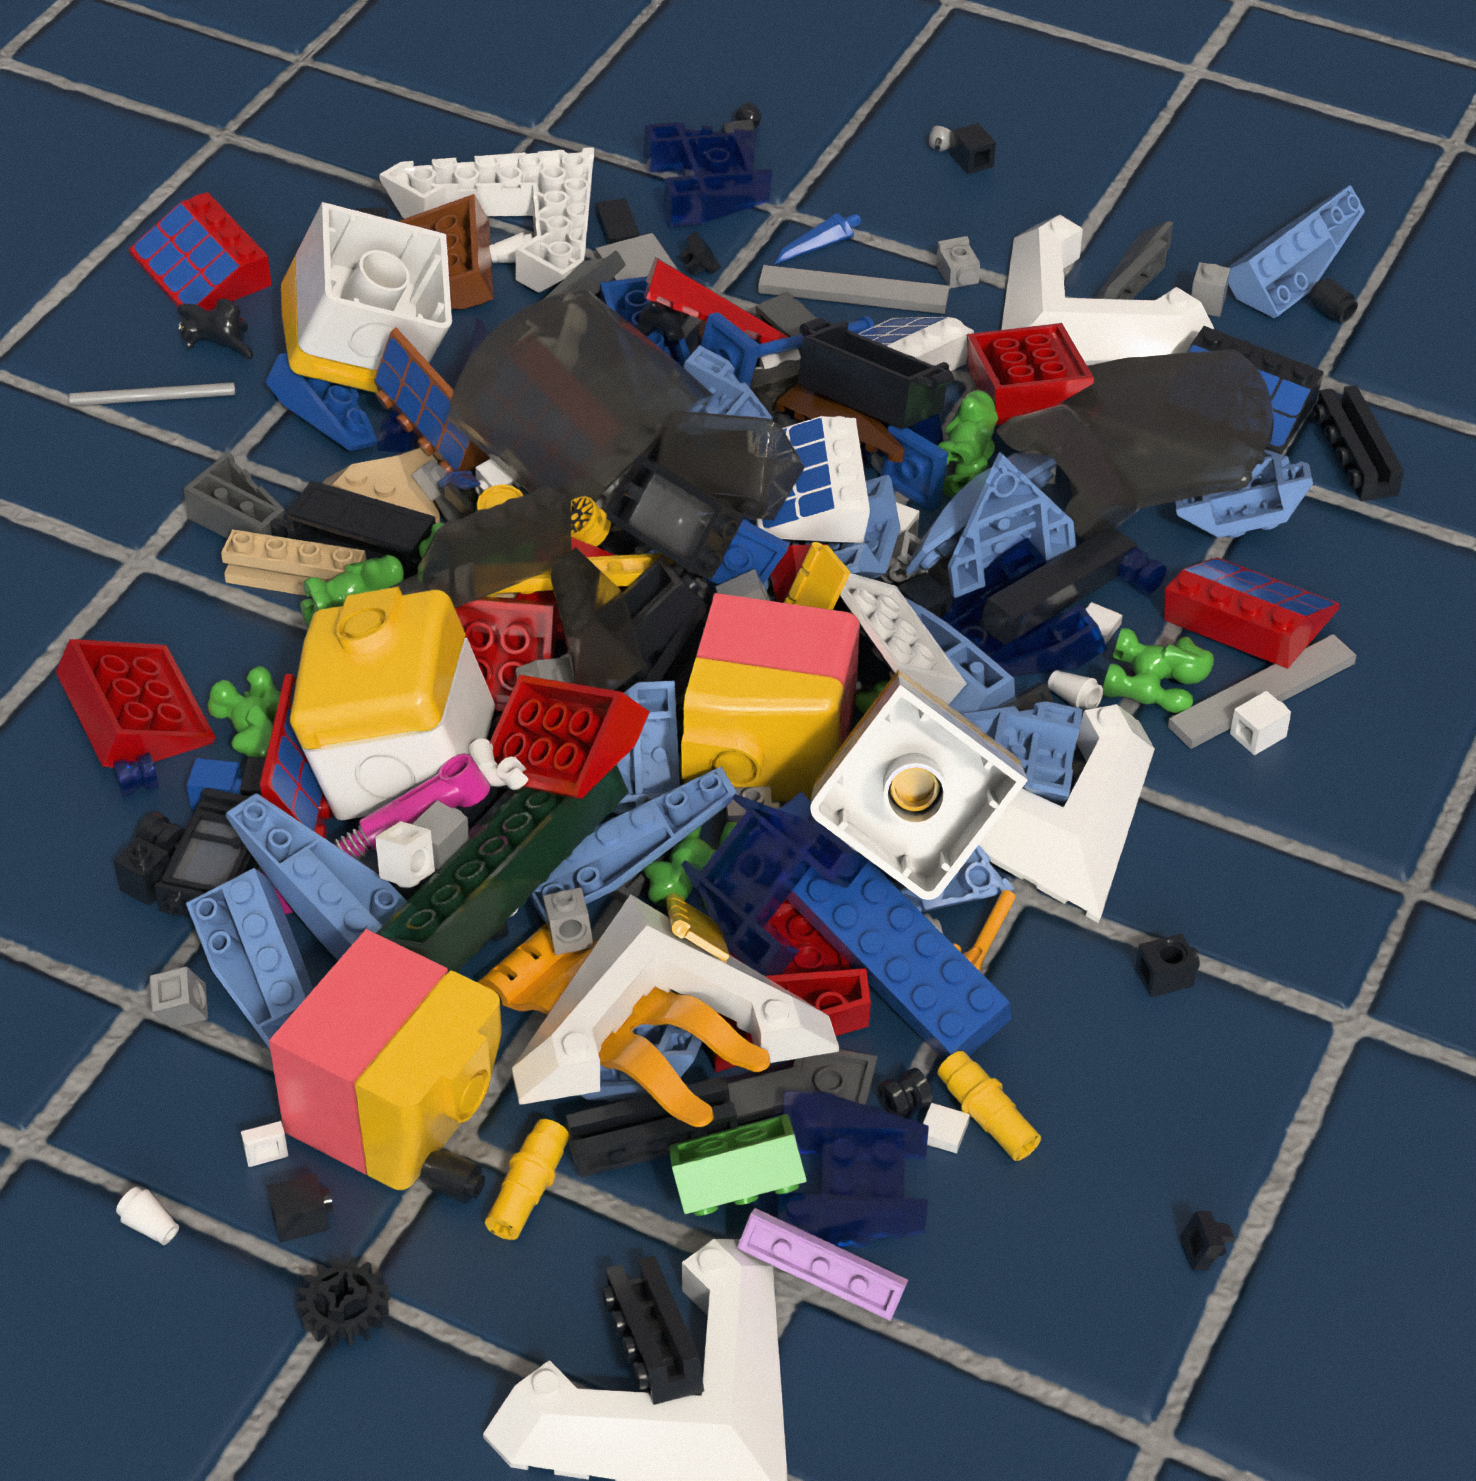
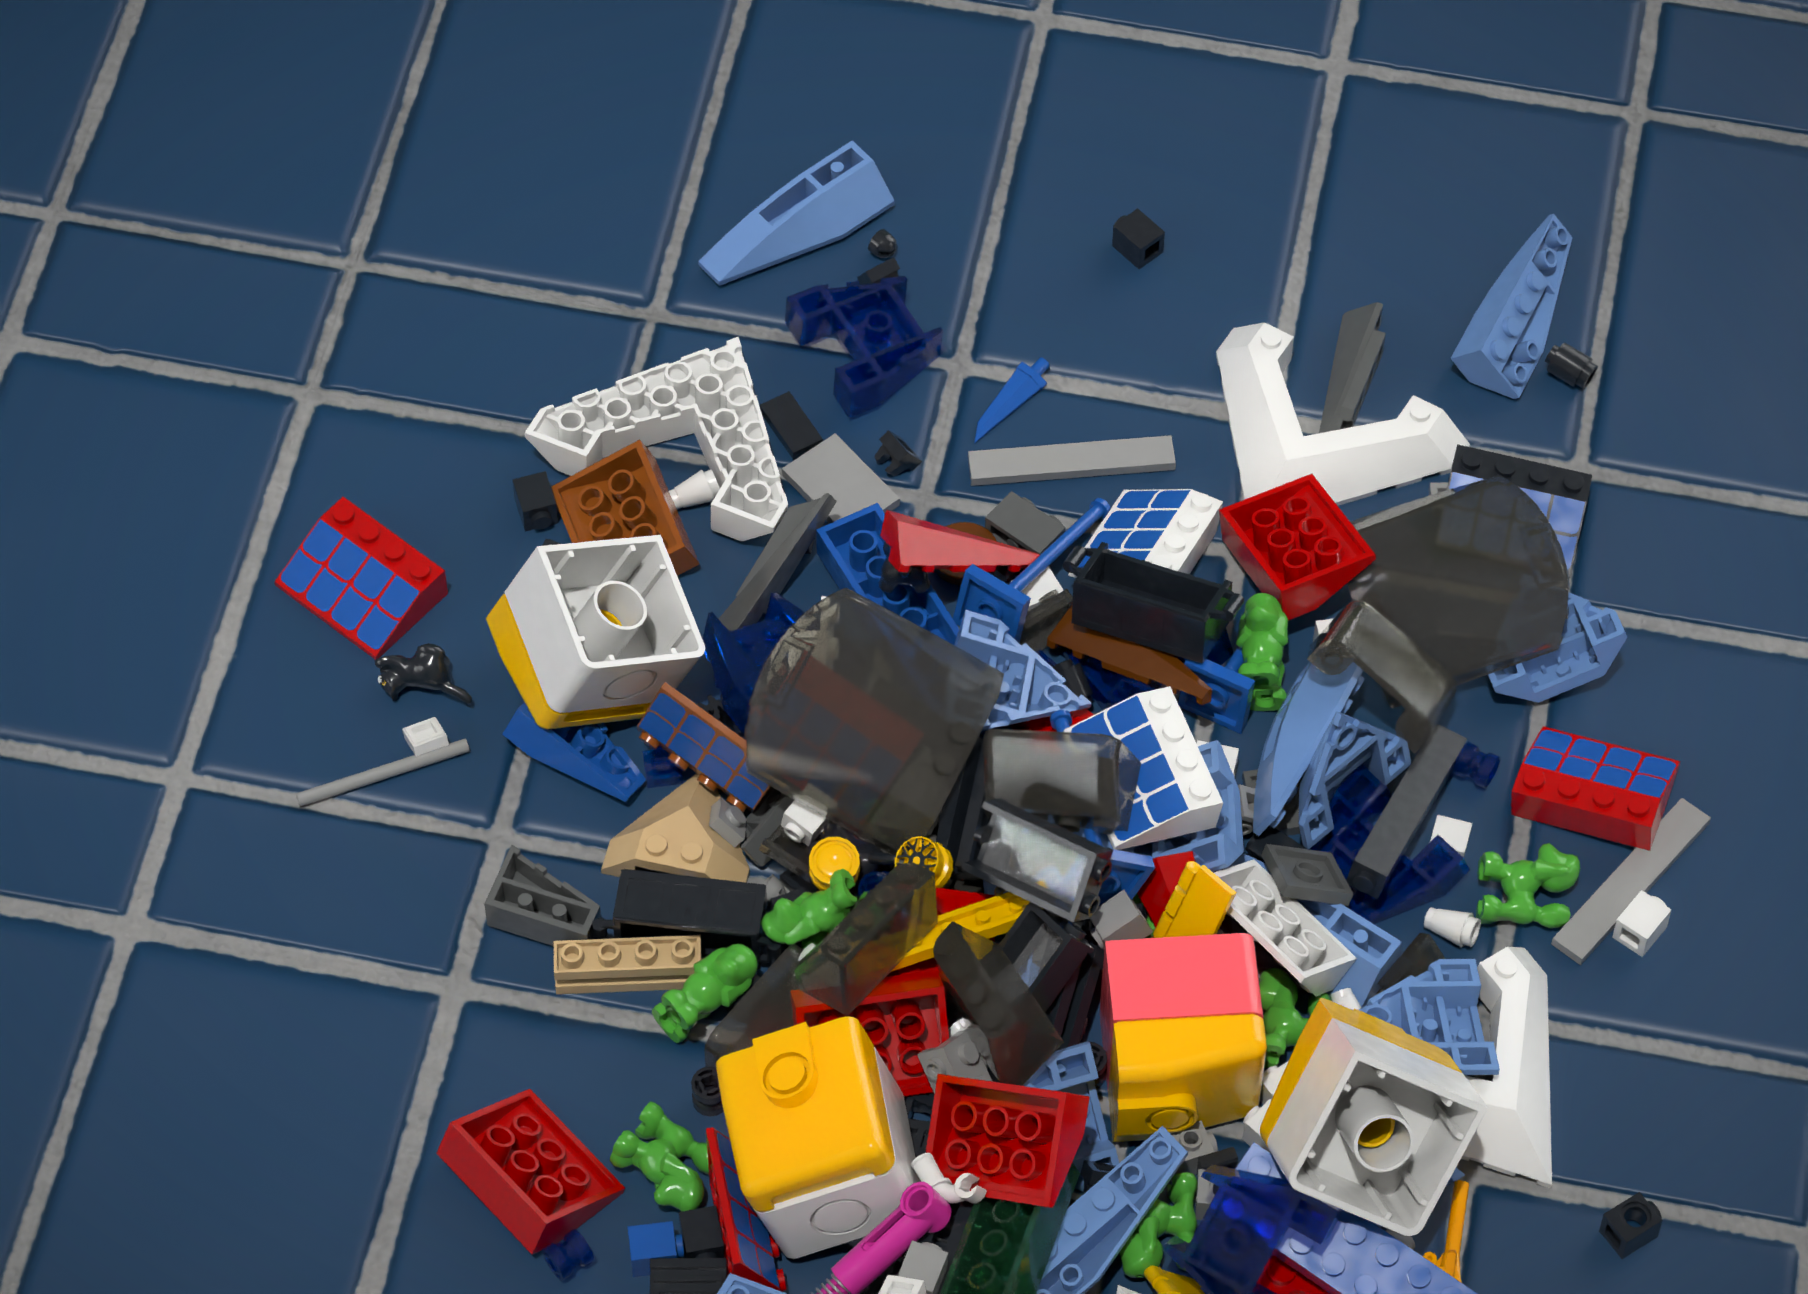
camera: 15 degrees left, 10 degrees up
(200, 374) = (425, 736): none -> white tile
(460, 479) = (767, 825): blue bar -> none
(688, 82) = (803, 215): none -> medium blue wedge
(940, 137) = (1099, 228): light grey hinge -> none
(943, 610) = (1307, 874): none -> dark grey tile
(957, 262) = (1171, 403): light grey brick -> none
(1211, 287) = (1443, 381): light grey brick -> none
(1358, 444) = (1645, 551): black brick -> none

